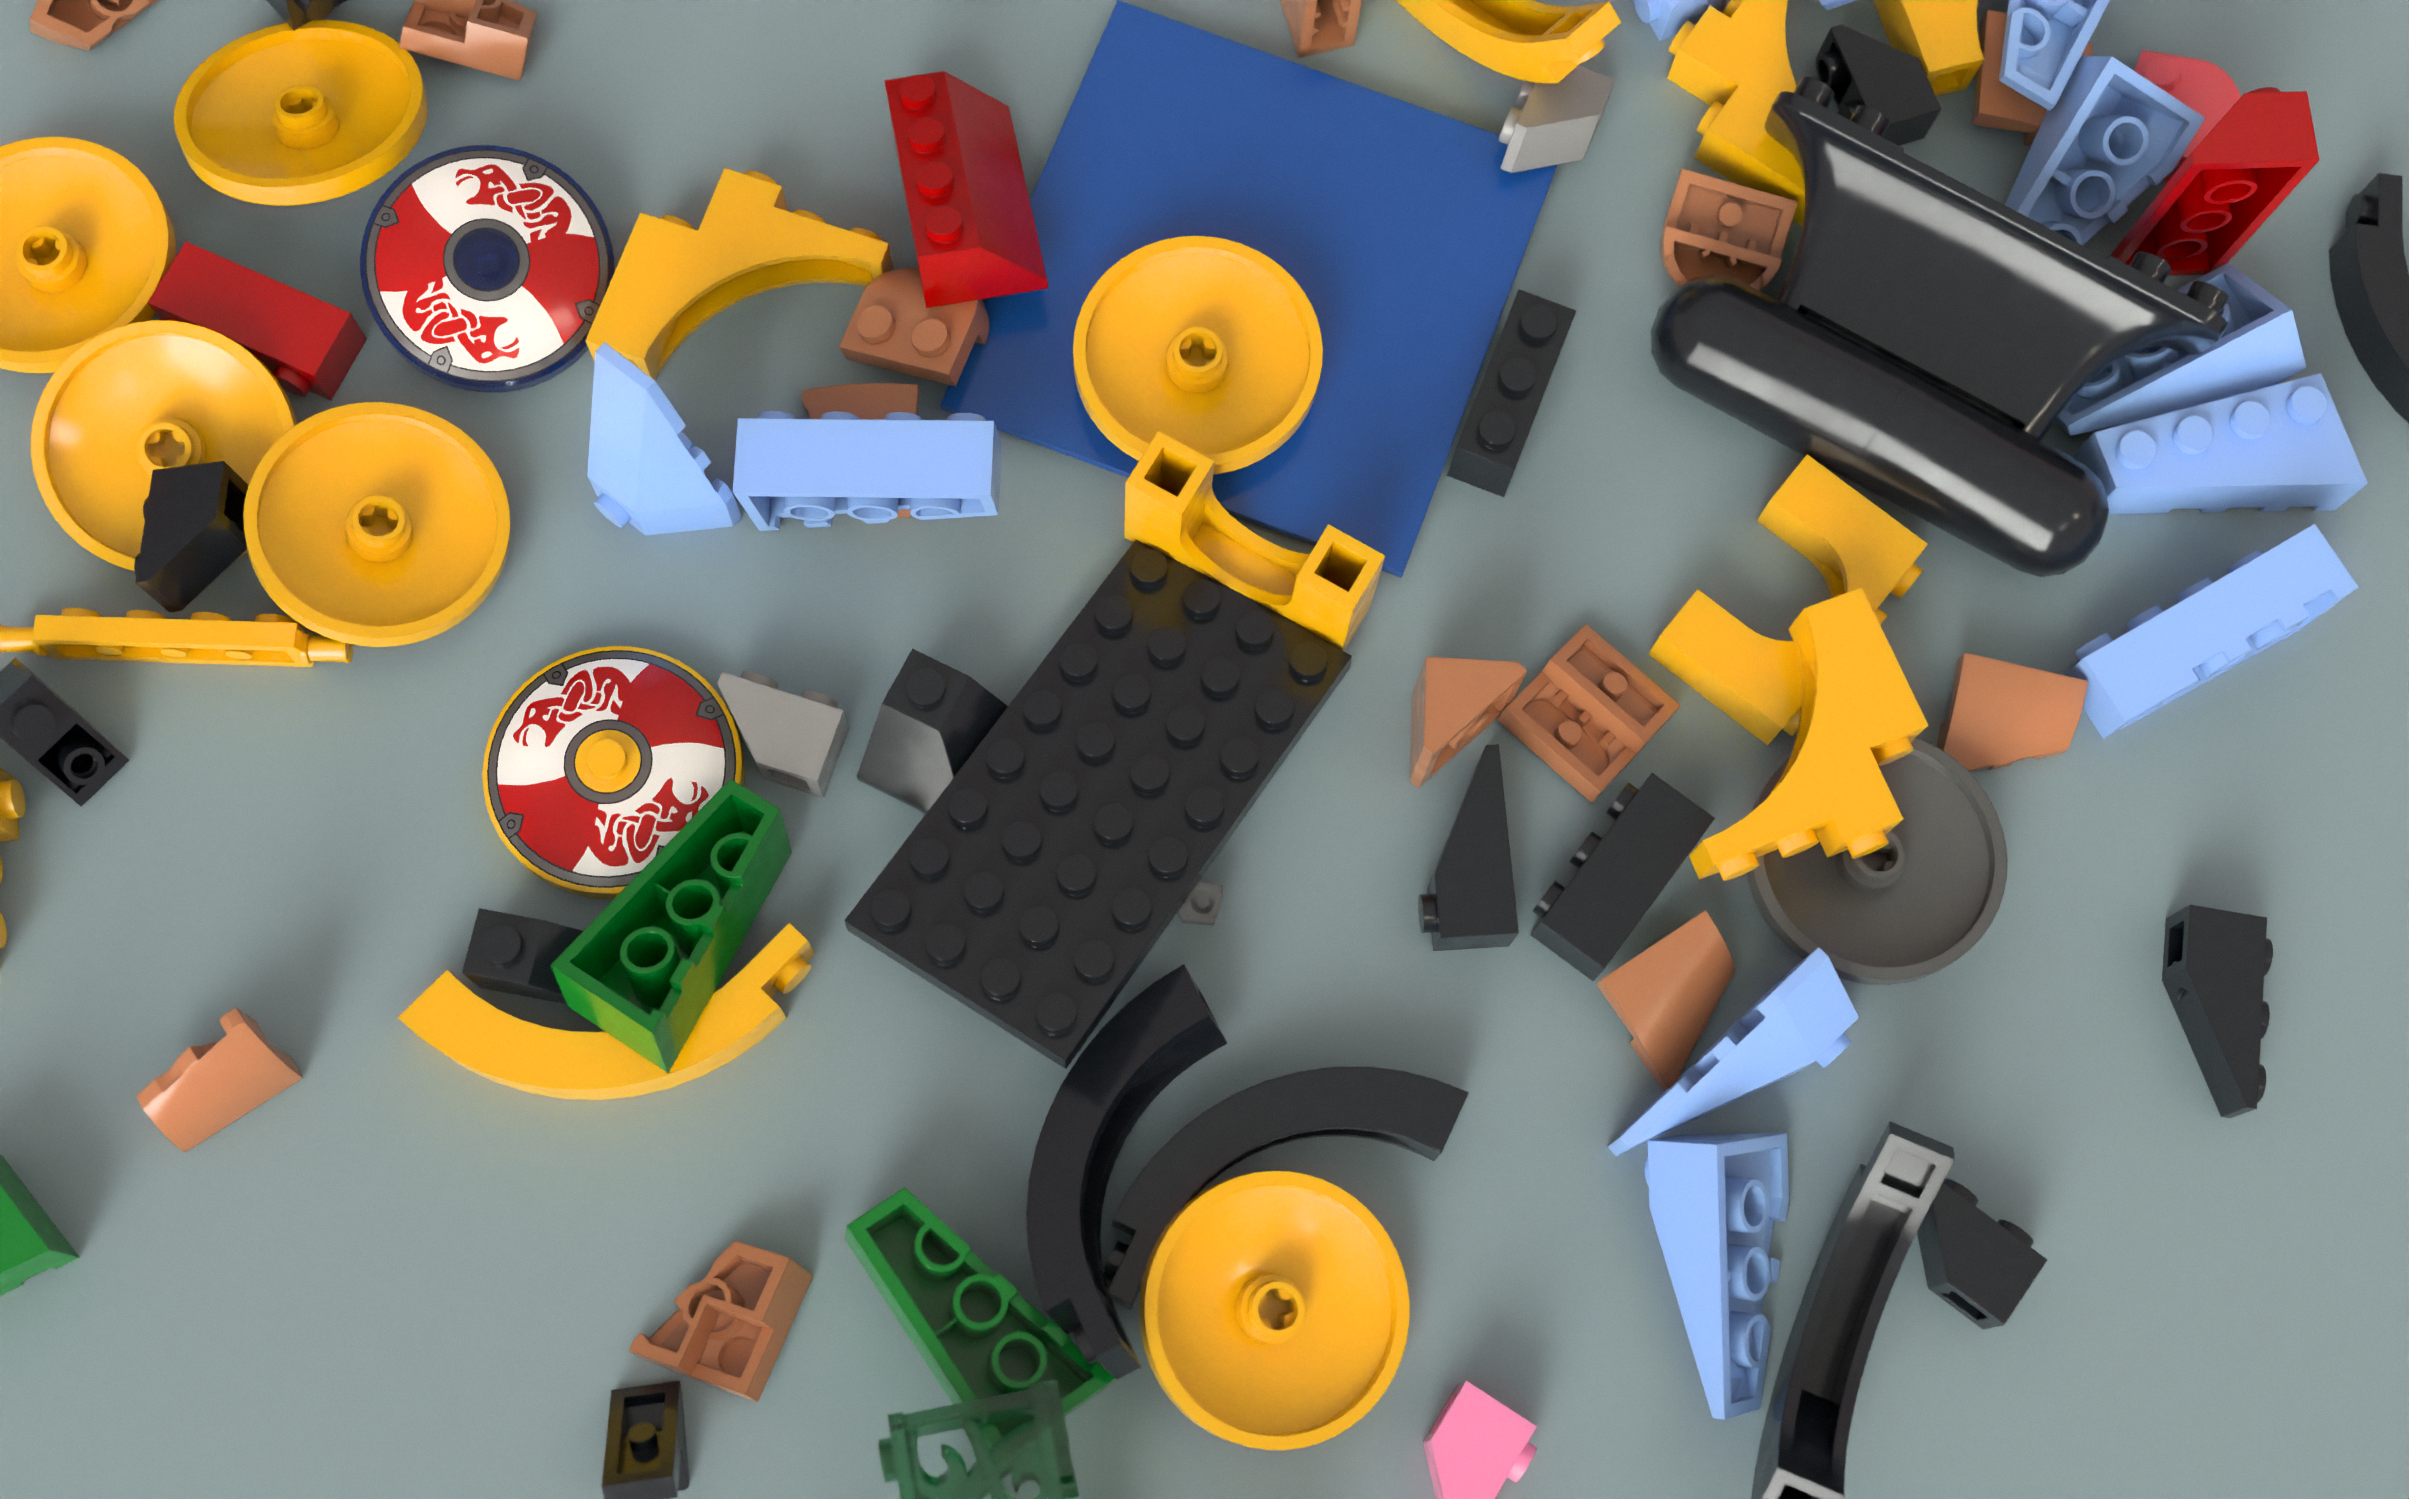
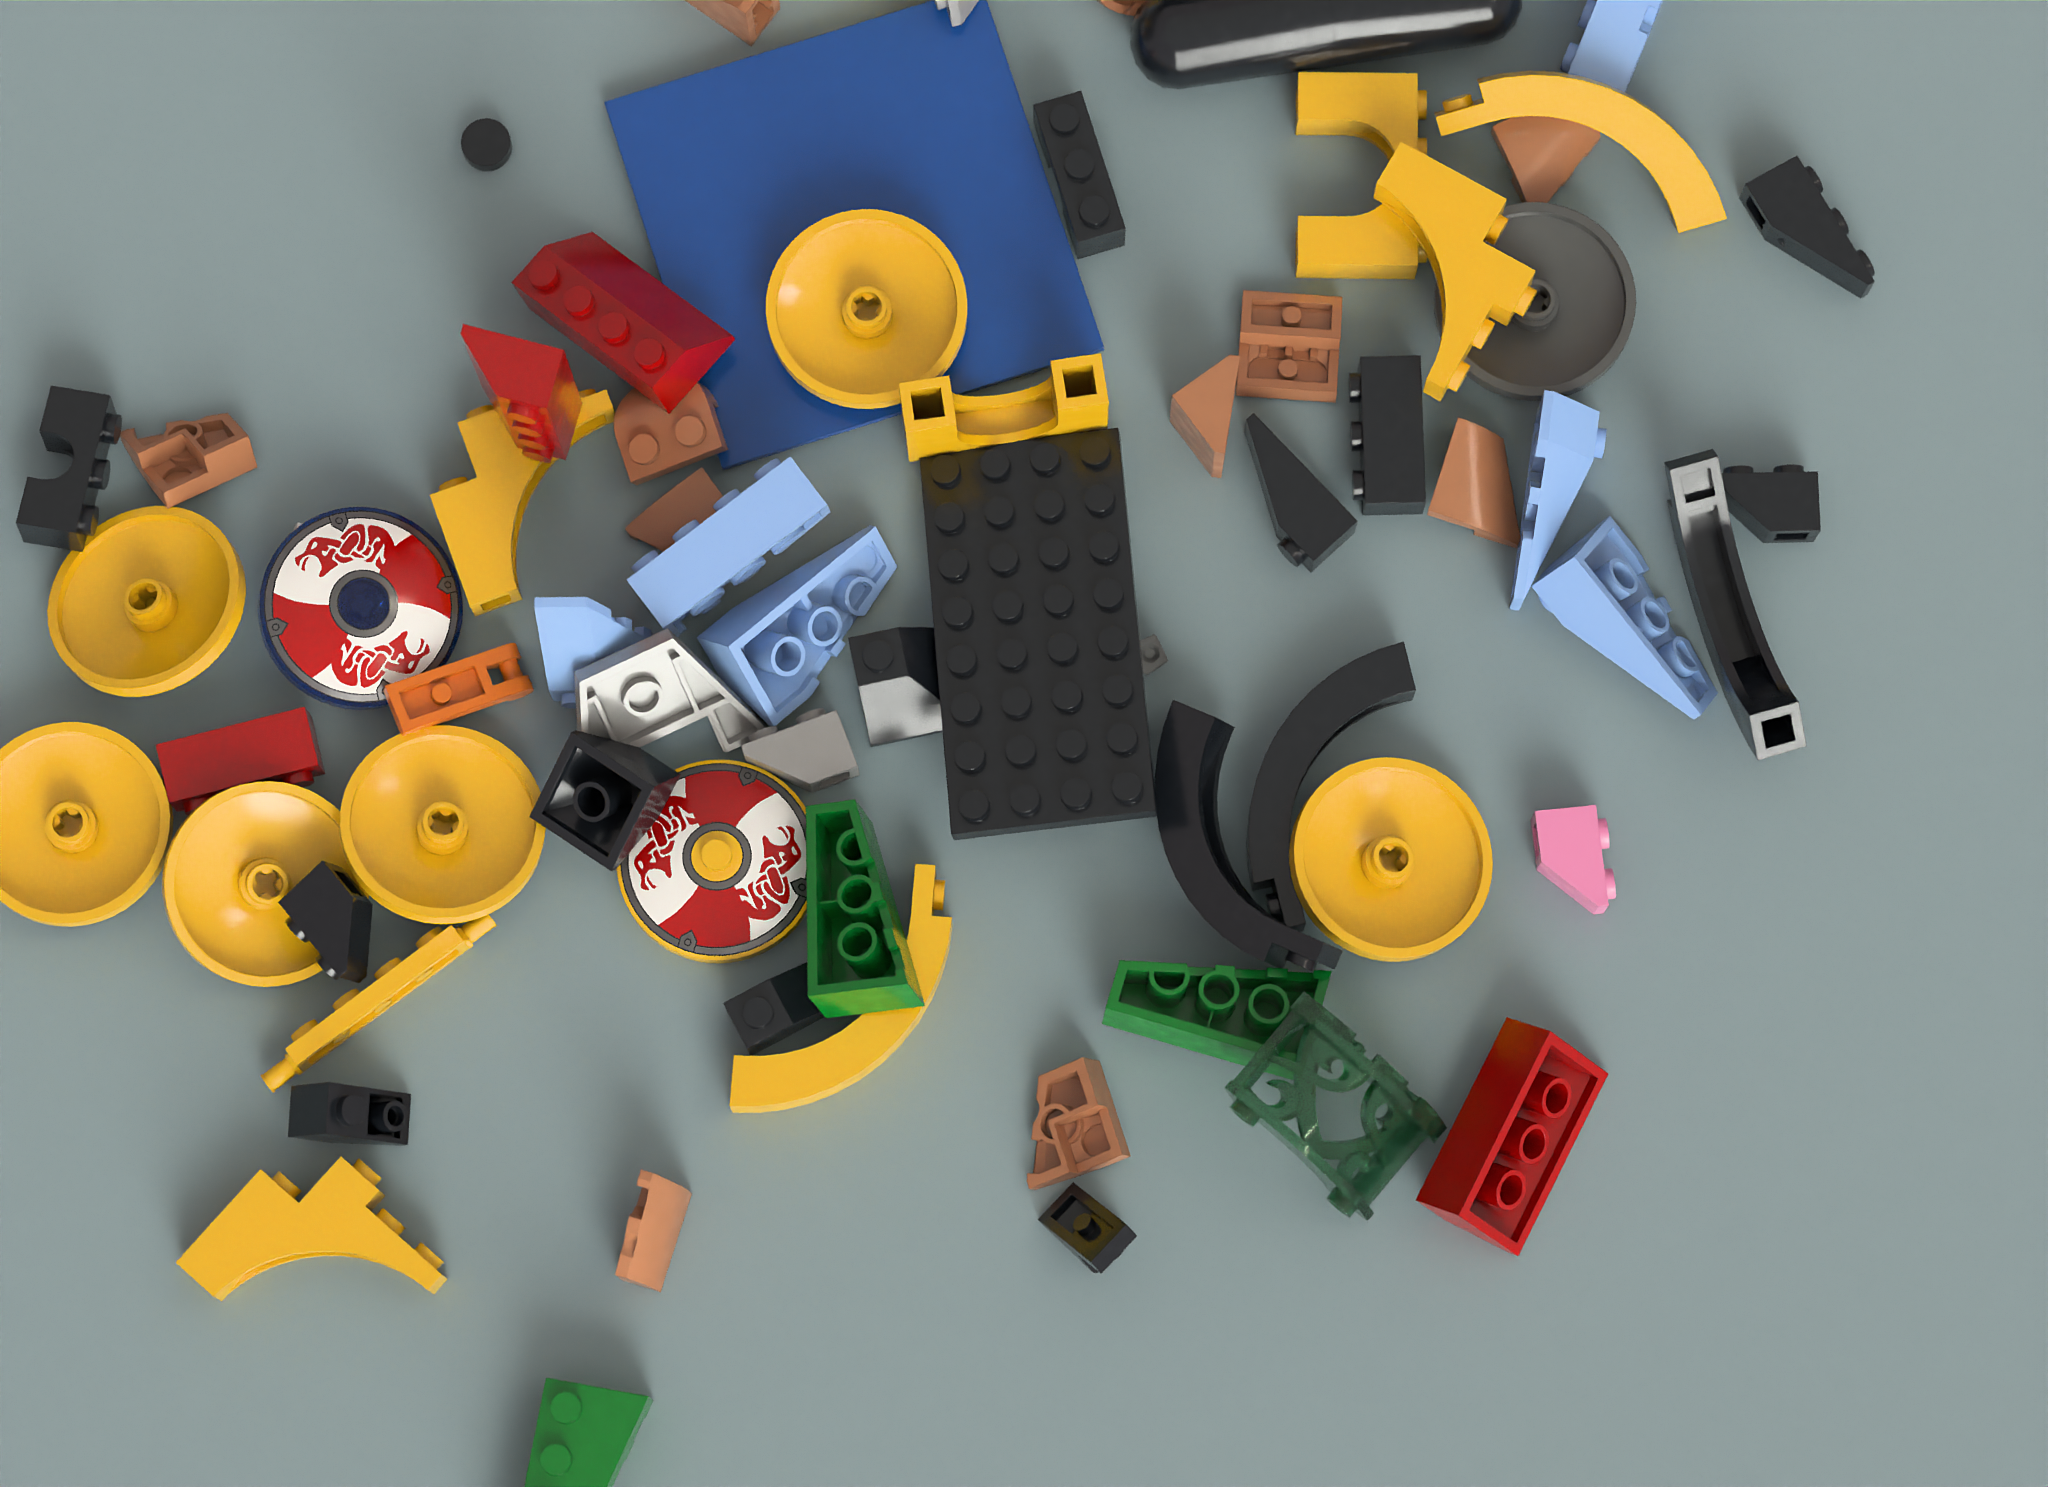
camera: 30 degrees left, 5 degrees up
(506, 411) = (457, 689): none -> orange plate
(547, 615) = (603, 796): none -> black slope
(666, 548) = (656, 691): none -> light grey wing
(786, 157) = (528, 390): none -> red slope
(868, 604) = (788, 631): none -> light blue wedge
(2119, 767) = (1635, 126): none -> yellow arch

